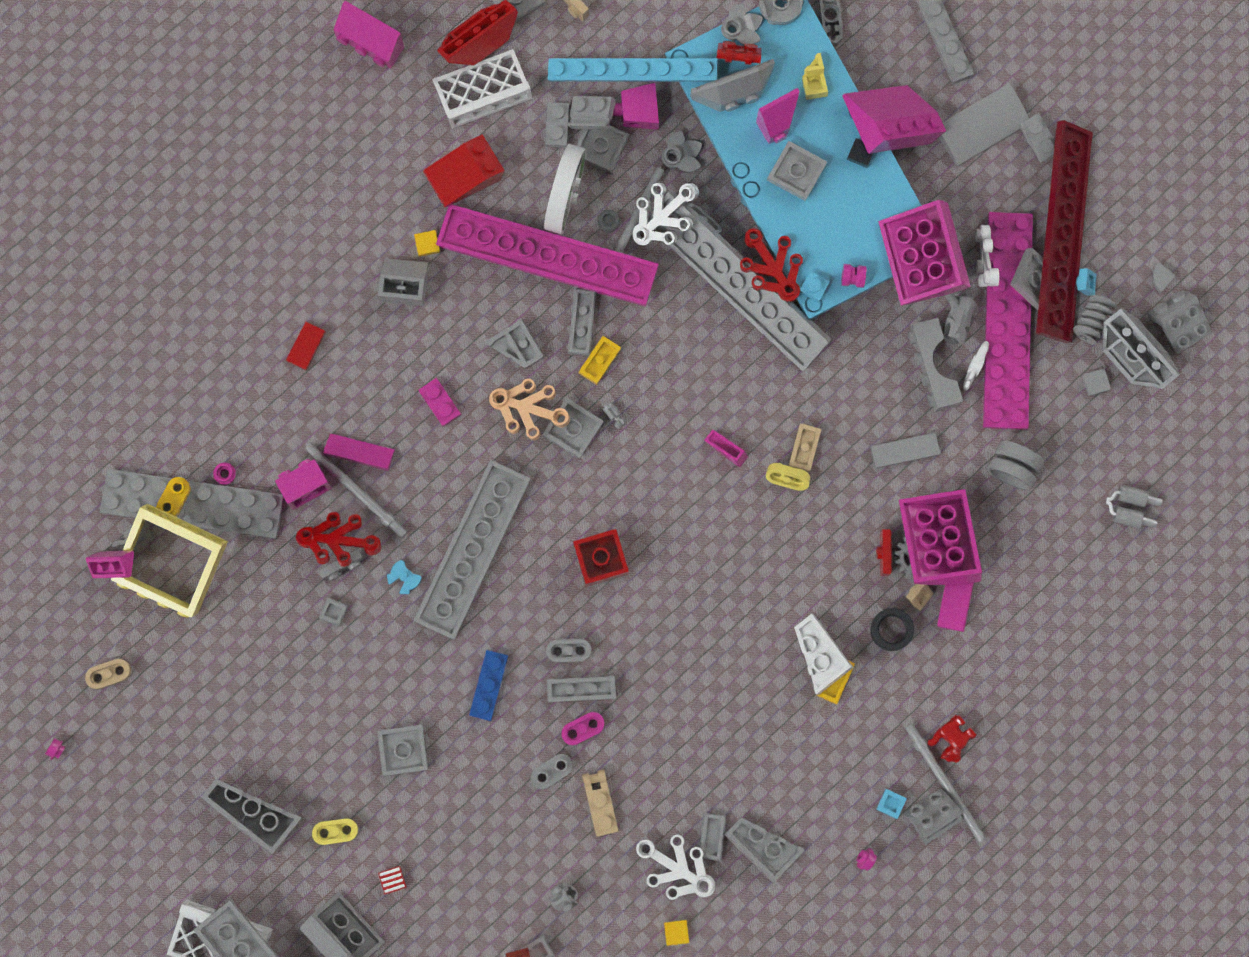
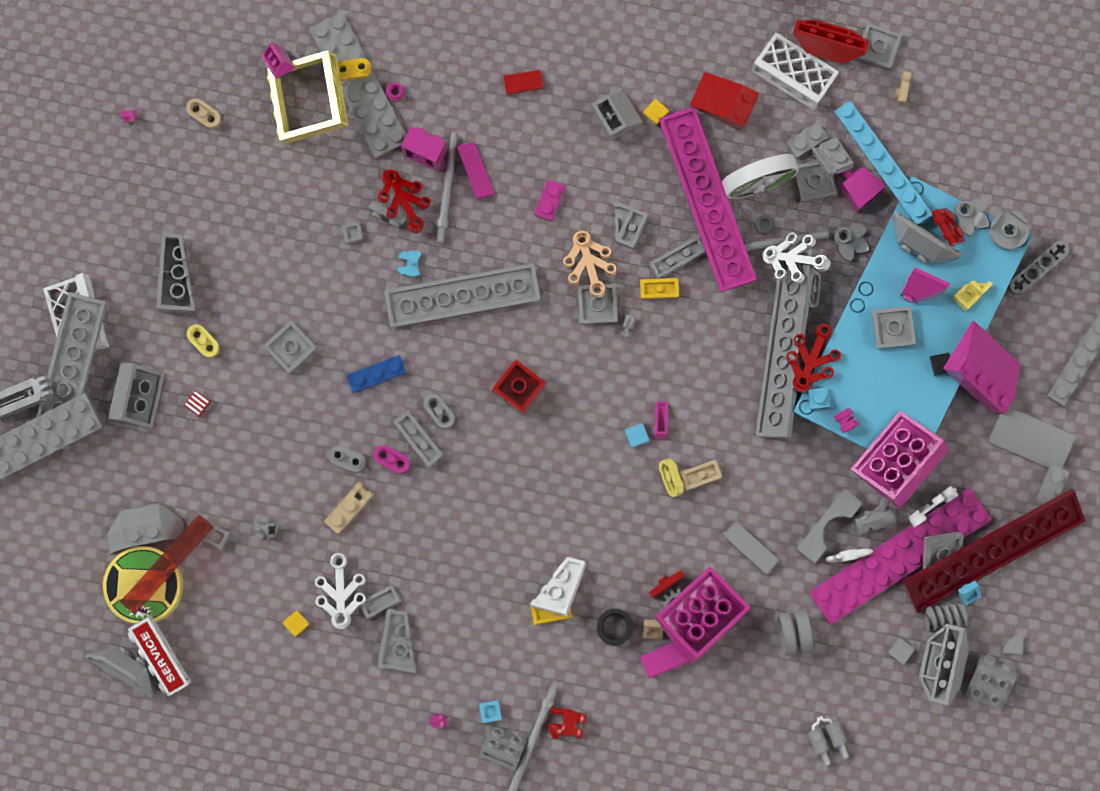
camera: 60 degrees right, 0 degrees up
(724, 480) = (636, 435): none -> medium azure tile

